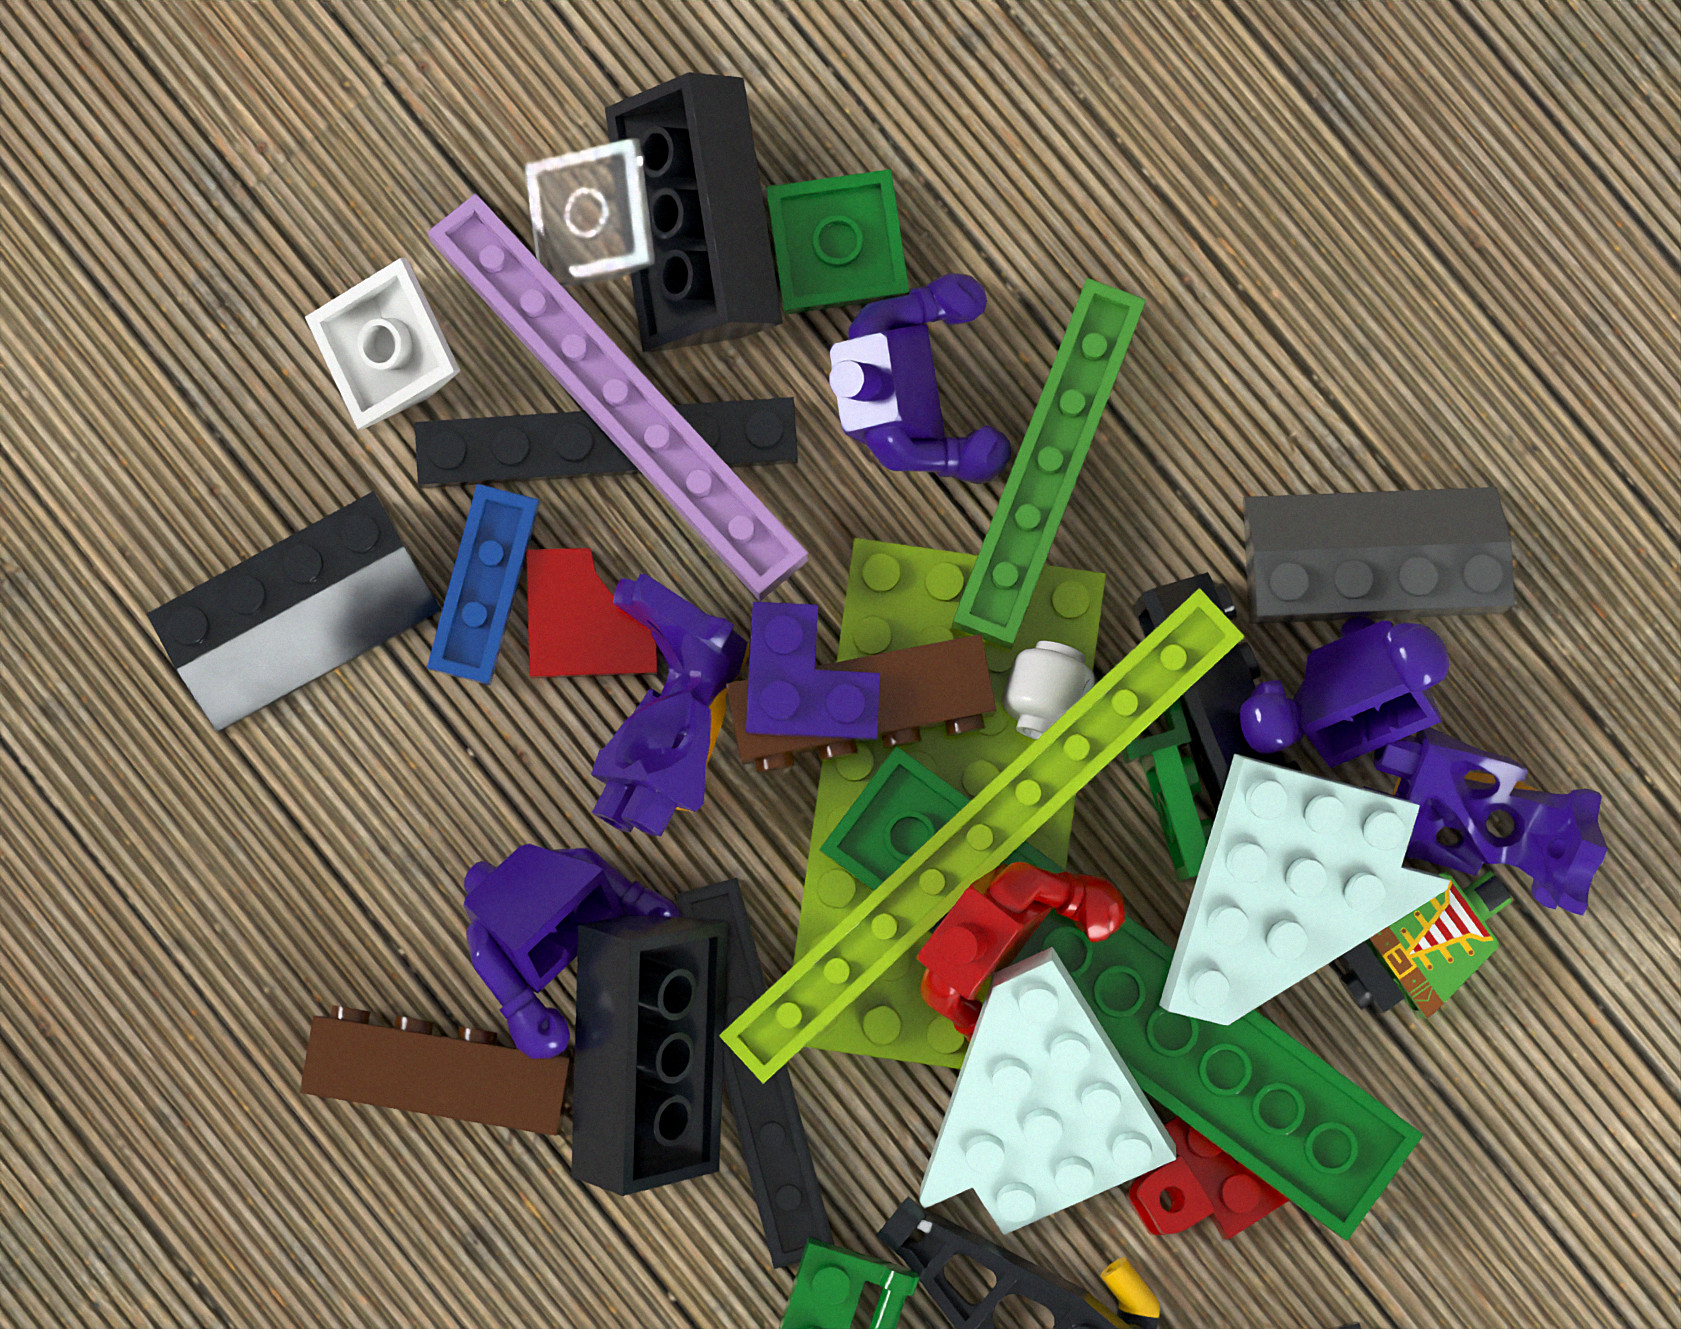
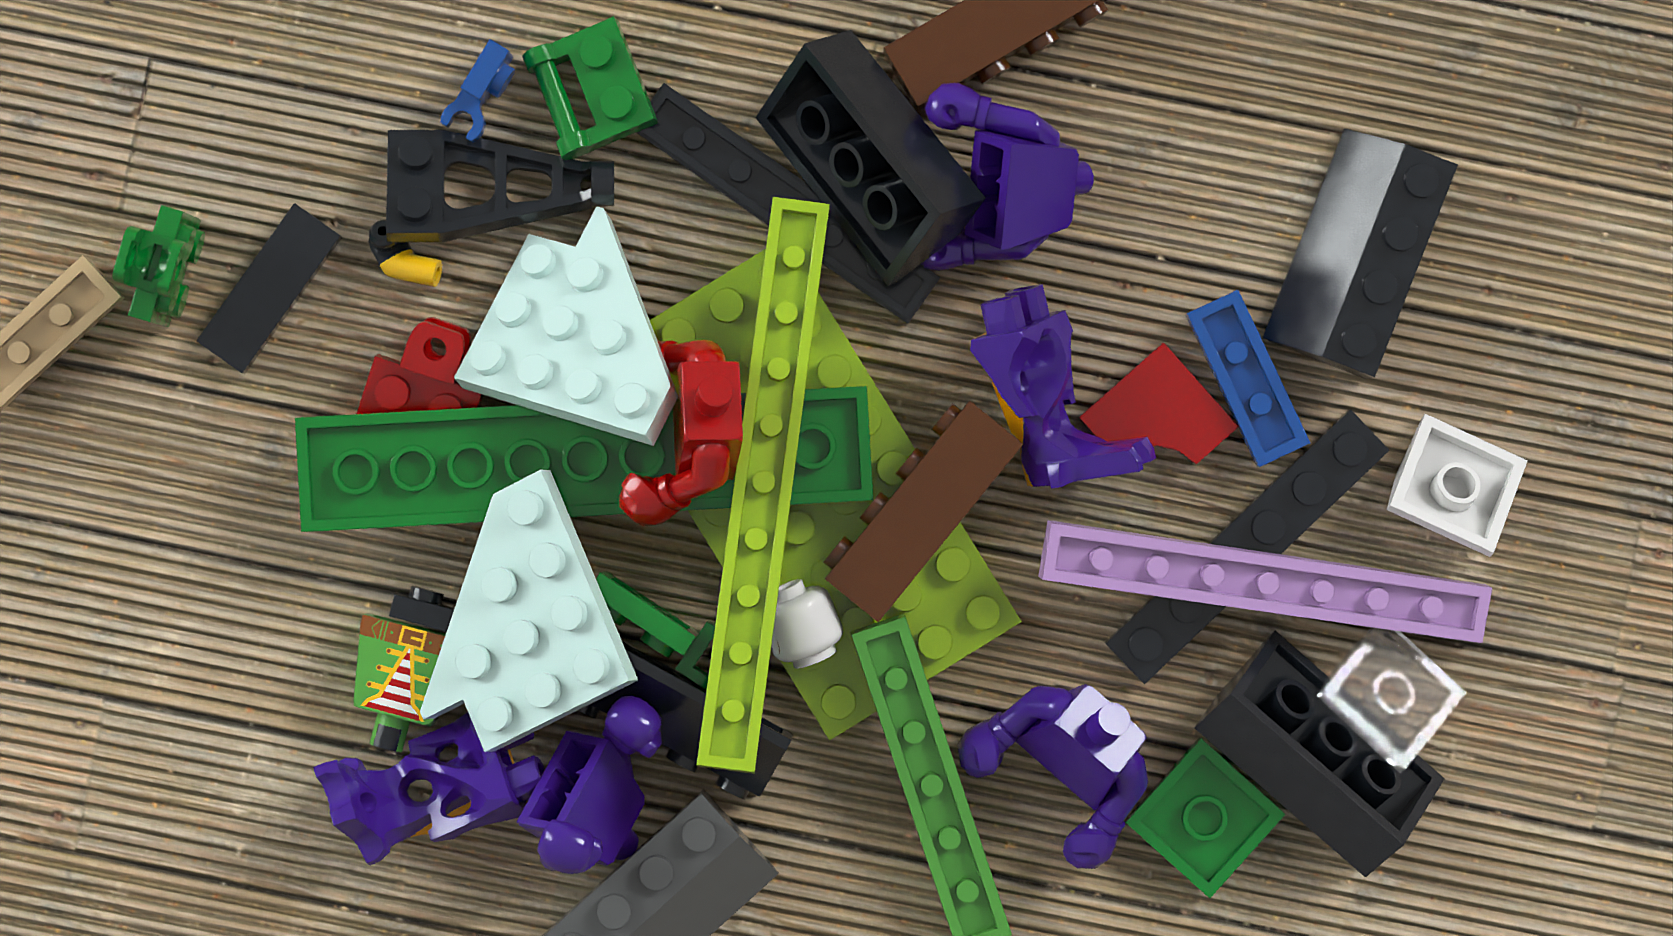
camera: 140 degrees right, 5 degrees up
(789, 693) = (975, 473): dark purple plate -> none

